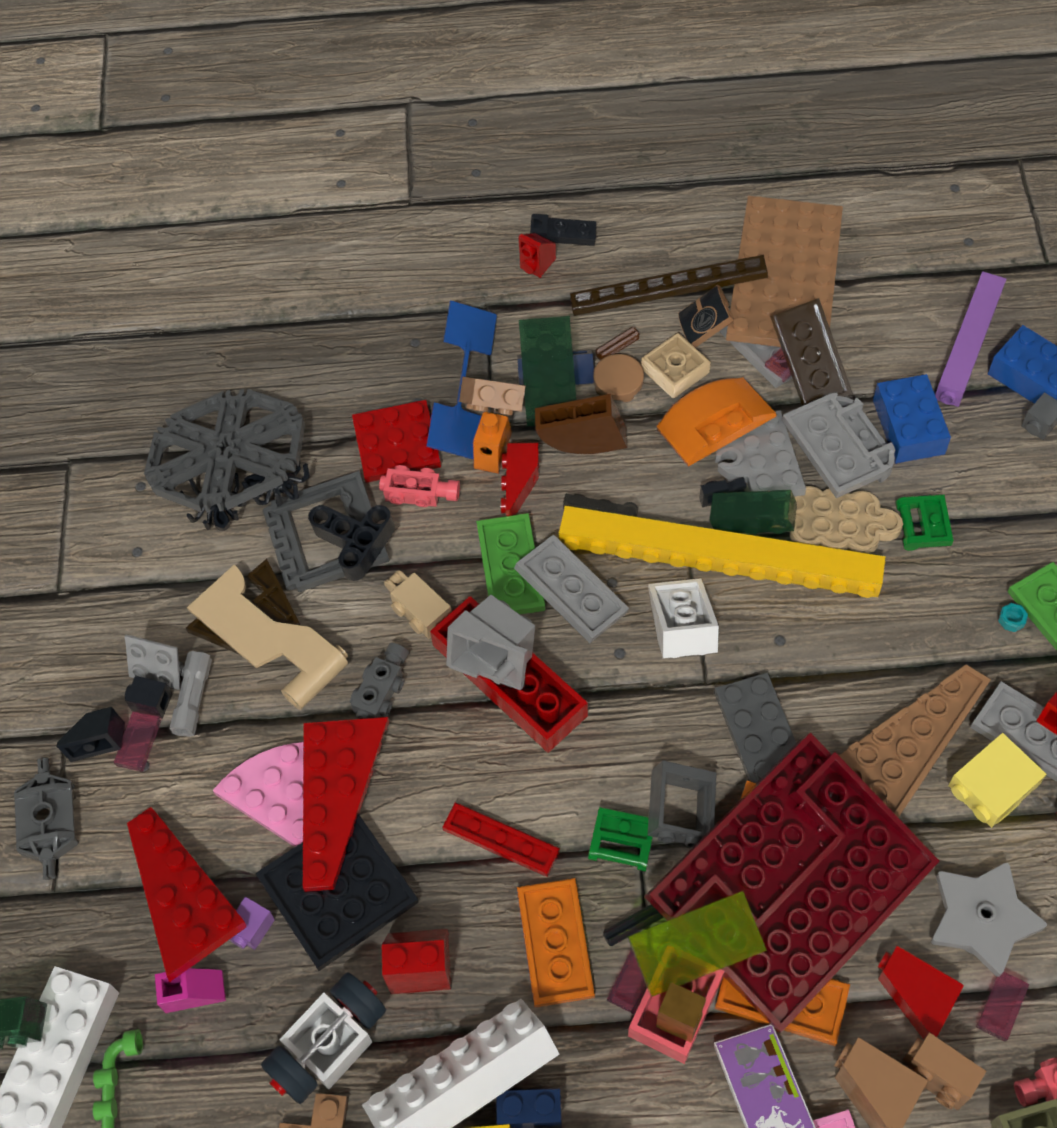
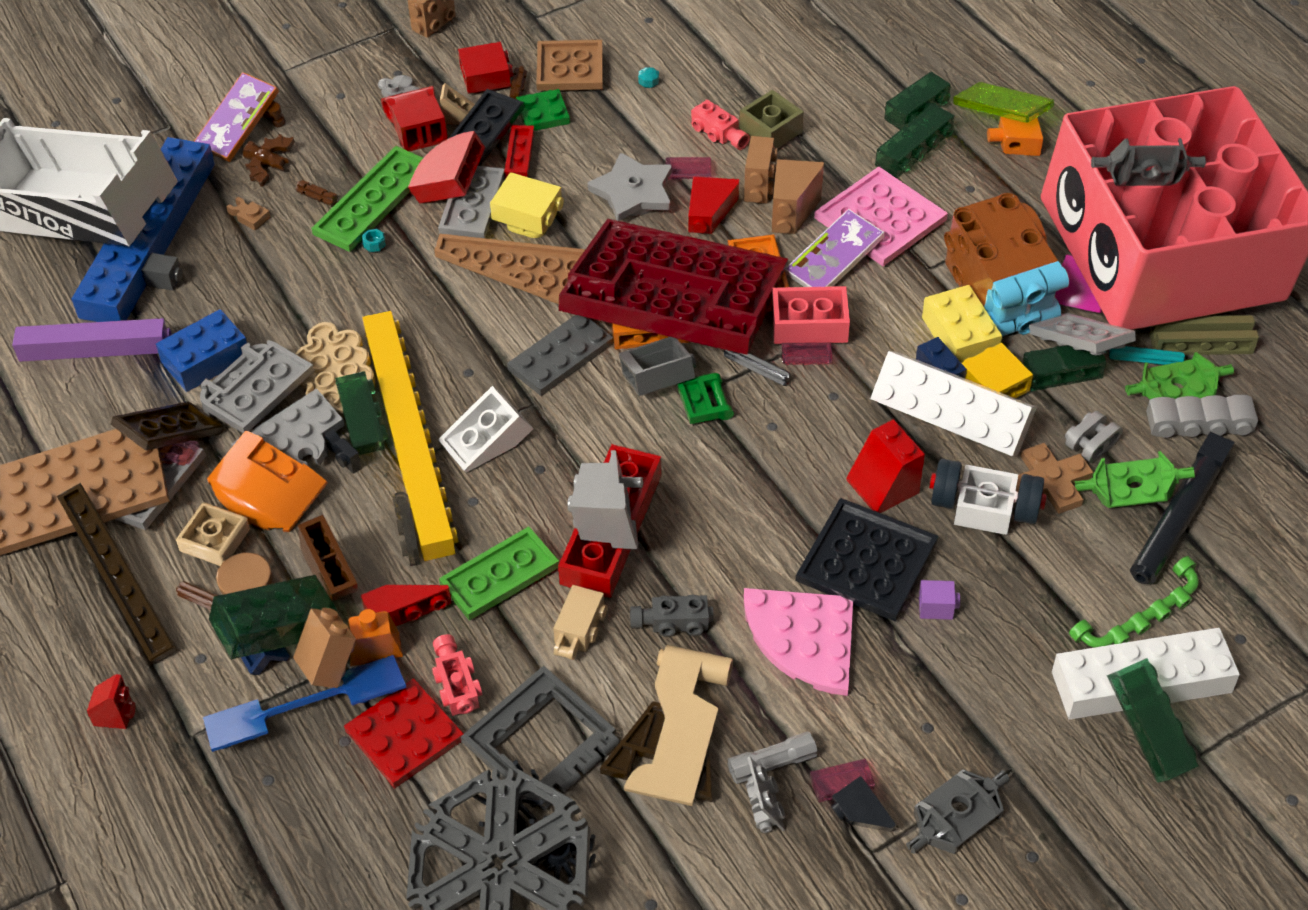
camera: 120 degrees left, 10 degrees down
(148, 696) = (798, 788): black brick -> none
(184, 903) = (955, 645): red wing -> none
(190, 989) = (1018, 610): dark pink slope -> none
(335, 781) = (781, 595): red wing -> none
(357, 535) = (542, 690): black beam -> none
(501, 839) = (753, 476): red tile -> none
(555, 943) = (810, 409): orange tile -> none
(564, 230) = (63, 704): black plate -> none
(571, 588) = (502, 512): light grey plate -> none
(680, 1012) = (826, 281): pearl gold panel -> none
(696, 943) = (767, 300): clear neon green tile -> none
(705, 316) = (144, 528): black slope -> none
(933, 521) = (304, 309): green plate -> none

